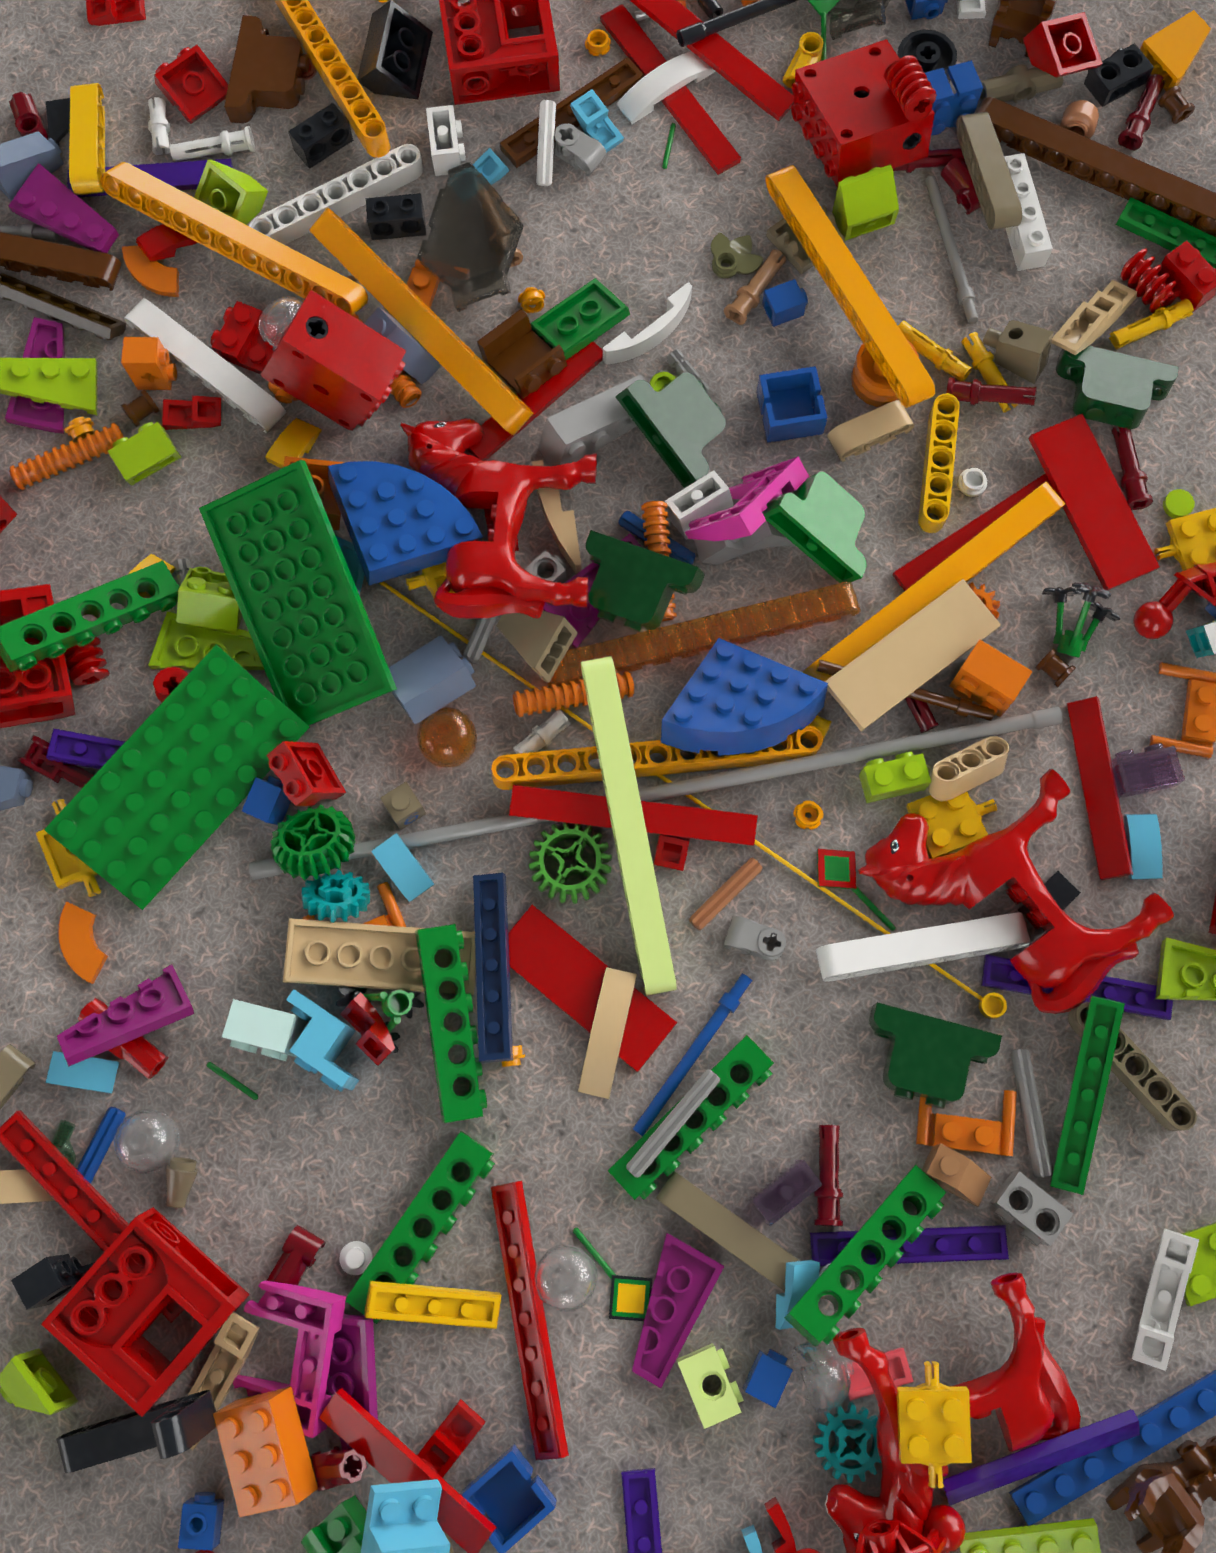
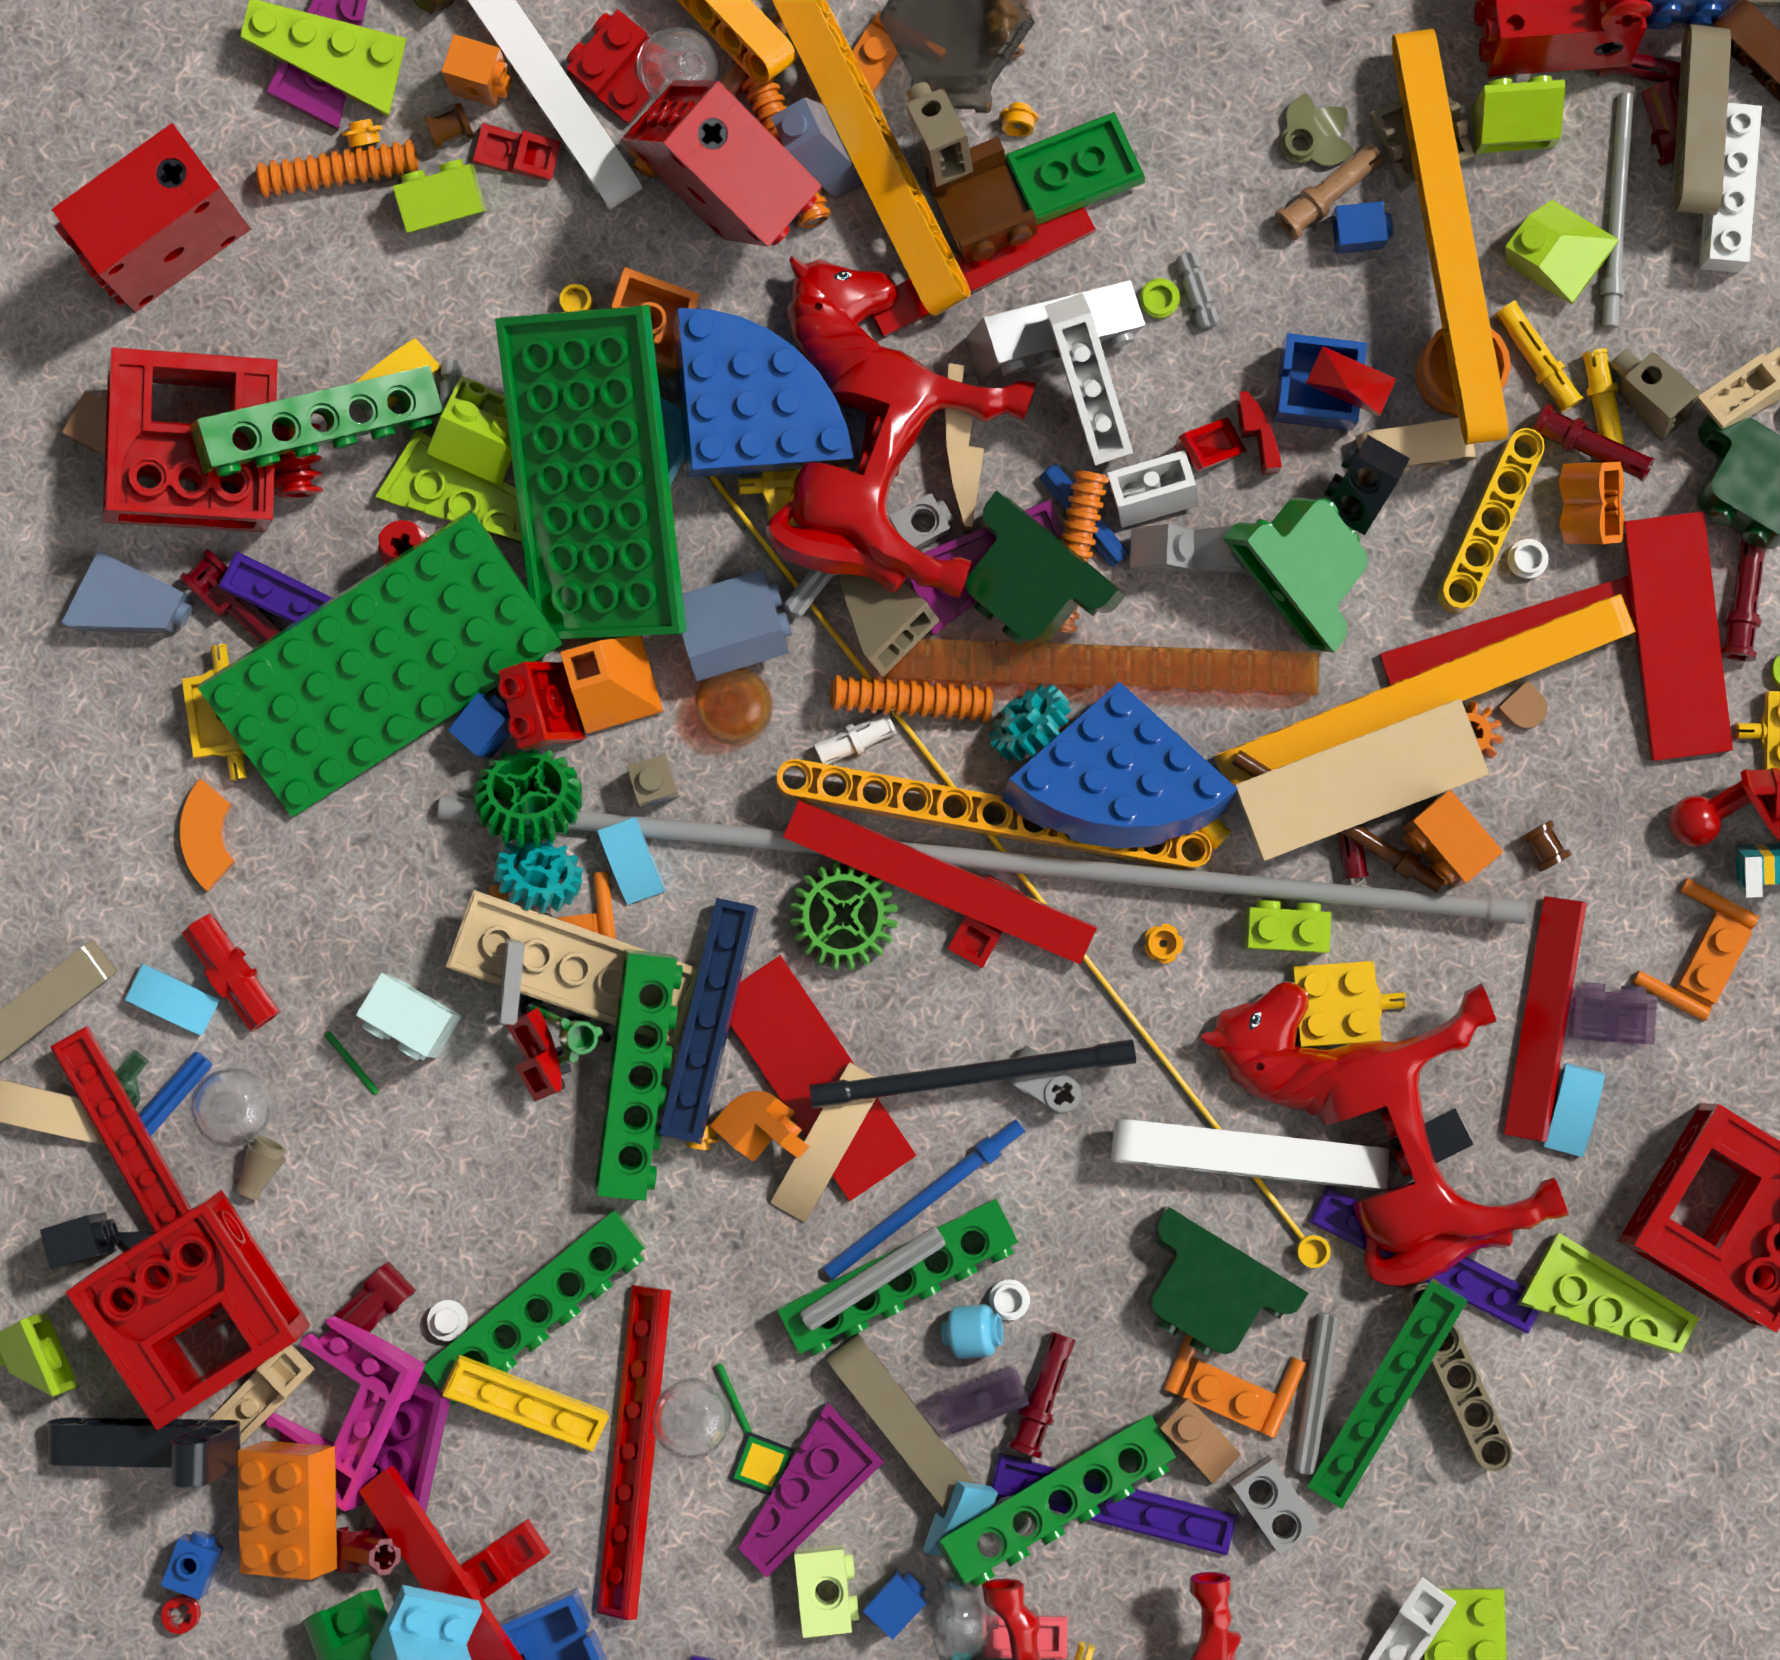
camera: 15 degrees right, 10 degrees up
(144, 1011) = (261, 951): magenta wing -> none
(293, 442) = (640, 237): yellow slope -> none
(321, 1042) = (474, 1053): medium azure bracket -> none
(334, 977) = (511, 981): none -> light grey tile
(353, 745) = (611, 682): none -> orange slope
(473, 302) = (938, 134): none -> dark tan torso
(549, 1030) = (755, 1121): none -> orange brick
(611, 986) = (1100, 1056): none -> black piece
(625, 348) = (1122, 231): white slope -> none
(628, 826) = (929, 884): yellowish green beam -> none
(632, 439) = (1089, 378): none -> white brick
(663, 684) = (1030, 722): none -> teal gear
(676, 422) = (1158, 366): brick -> none
(725, 893) = (1027, 1012): nougat axle -> none
(729, 465) = (1210, 444): none -> red slope
(754, 494) = (1244, 494): dark pink wedge -> none
(757, 446) = (1254, 423): none -> red slope
(760, 1143) = (972, 1331): none -> medium azure head
(780, 1111) = (1009, 1299): none -> white plate
(813, 393) = (1350, 381): none -> red slope
(838, 870) = (1178, 1026): piece -> none
(849, 460) = (1367, 483): none -> black brick
(921, 282) = (1559, 250): none -> lime slope
(968, 768) = (1396, 934): tan beam -> none
(1004, 429) = (1592, 503): none -> orange brick
(1006, 580) = (1525, 707): none -> medium nougat tile
(1073, 641) = (1578, 818): plant -> none

